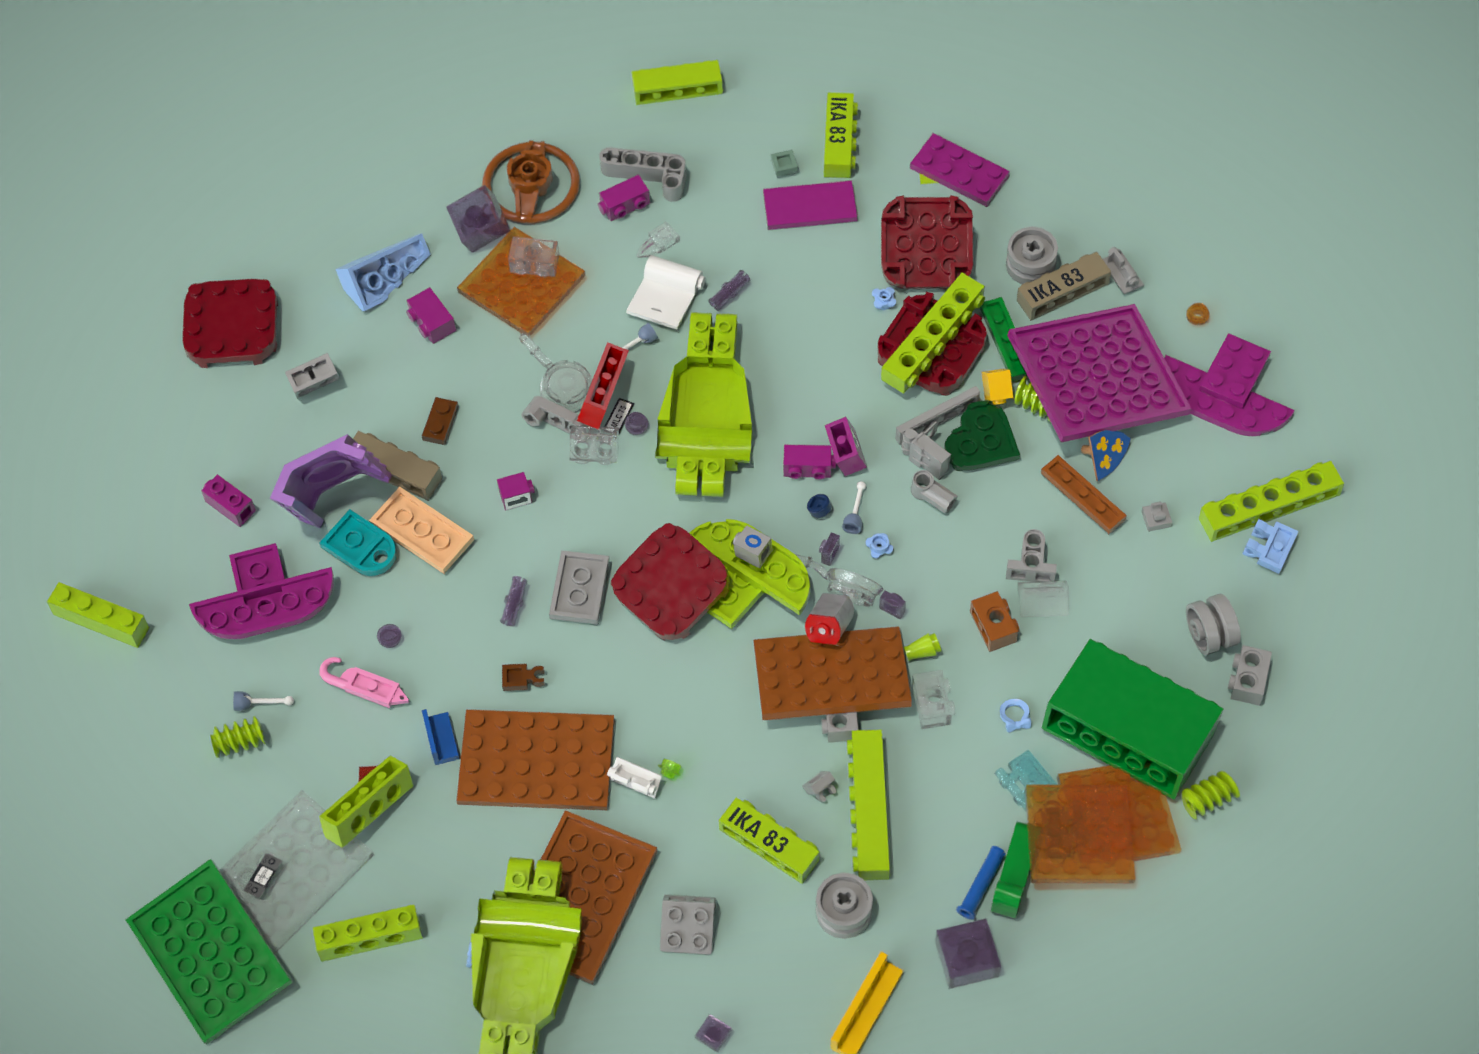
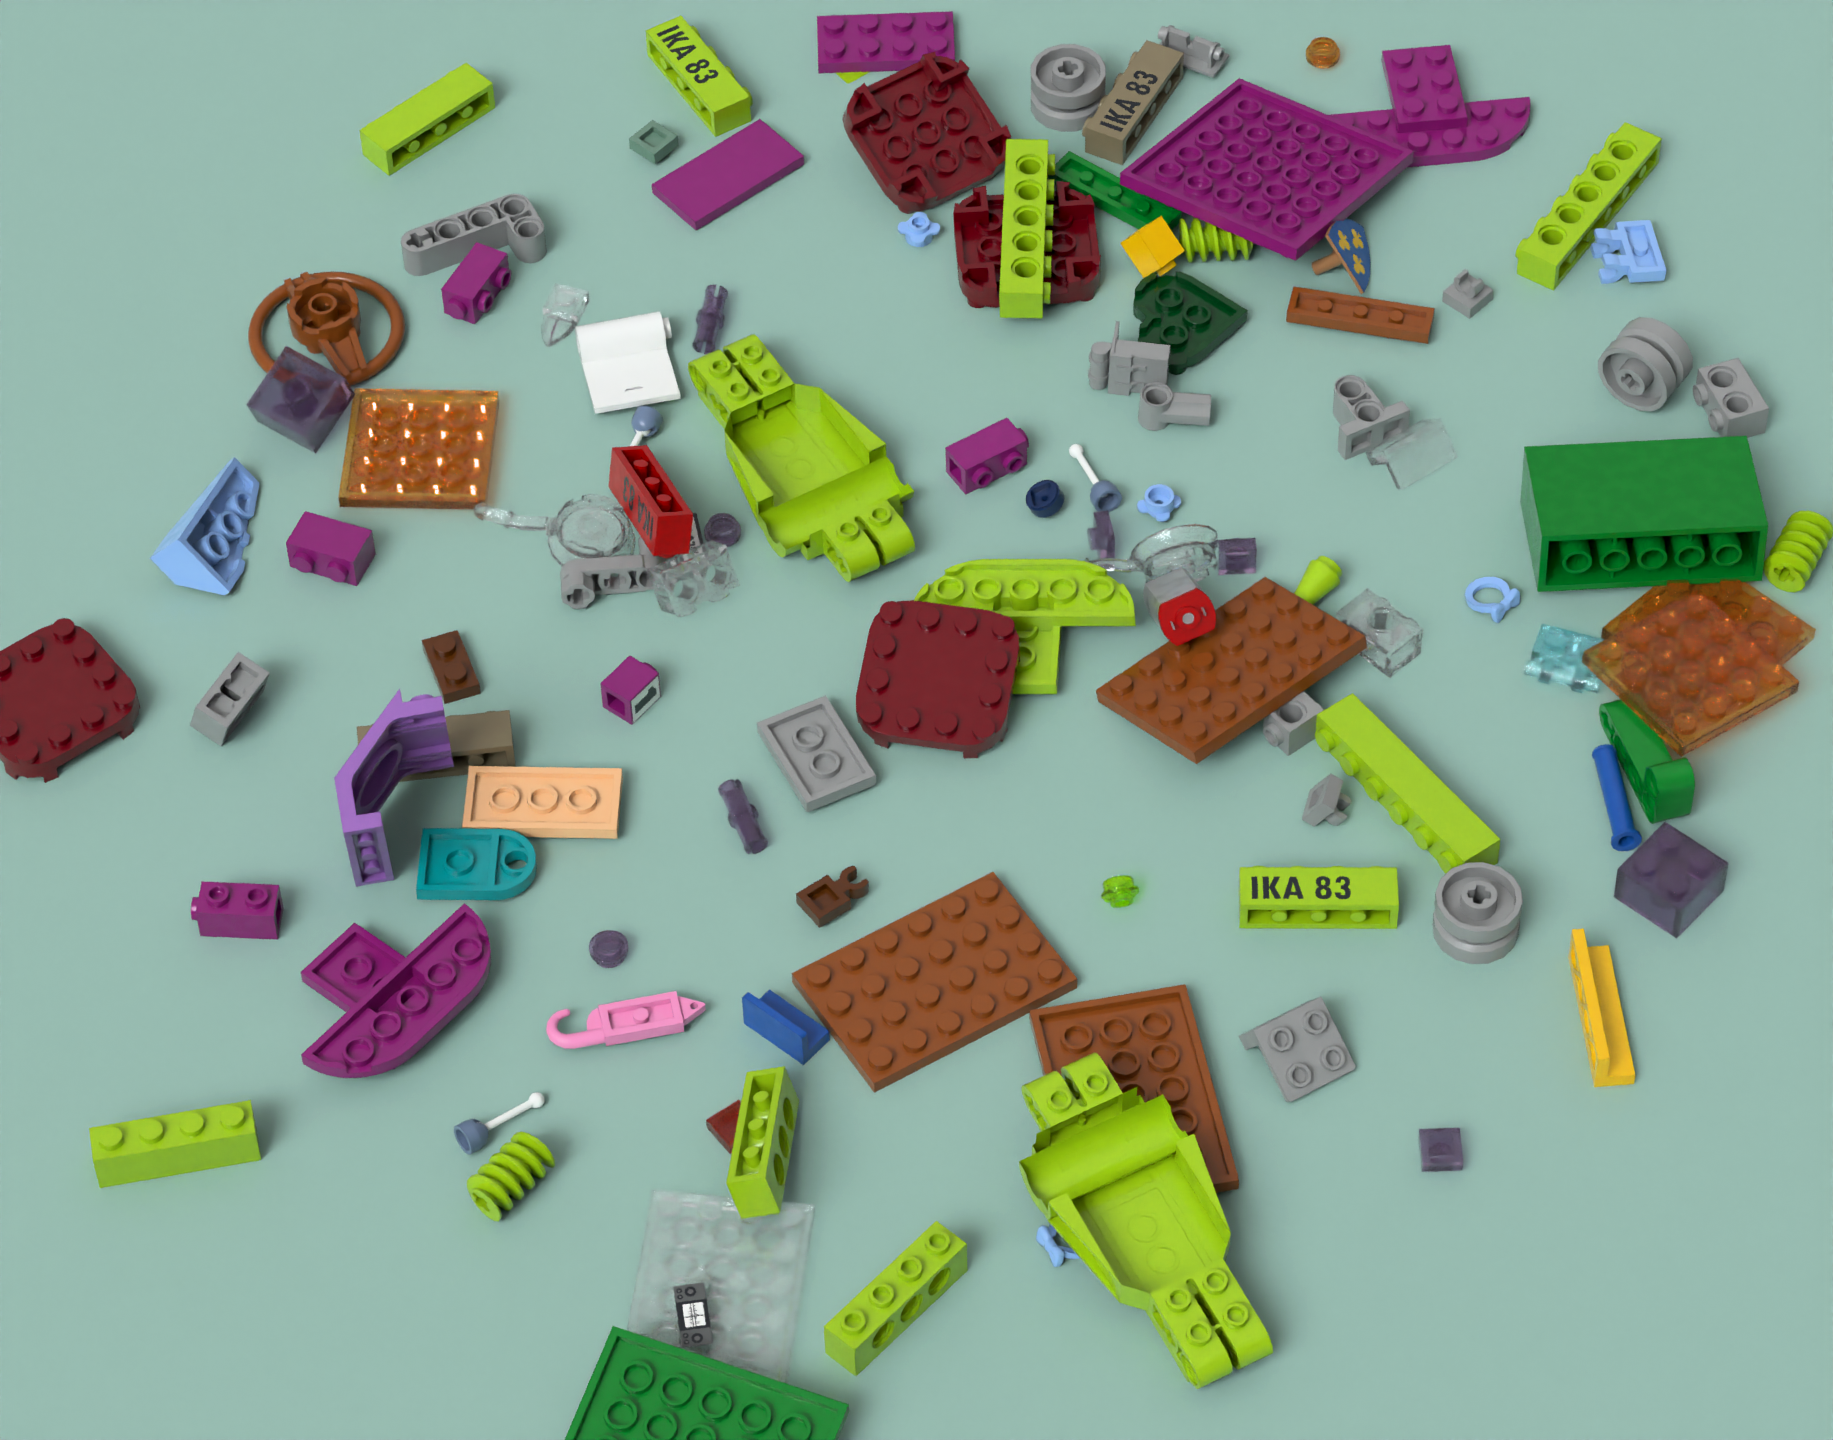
camera: 35 degrees left, 10 degrees down
(525, 249) = (419, 403): clear brick -> none
(635, 777) = (1085, 925): white hinge -> none
(752, 546) = (1013, 574): light grey brick -> none
(845, 446) = (1025, 408): magenta brick -> none
(940, 413) = (1104, 321): light grey tile -> none
(994, 634) = (1377, 507): dark orange brick -> none

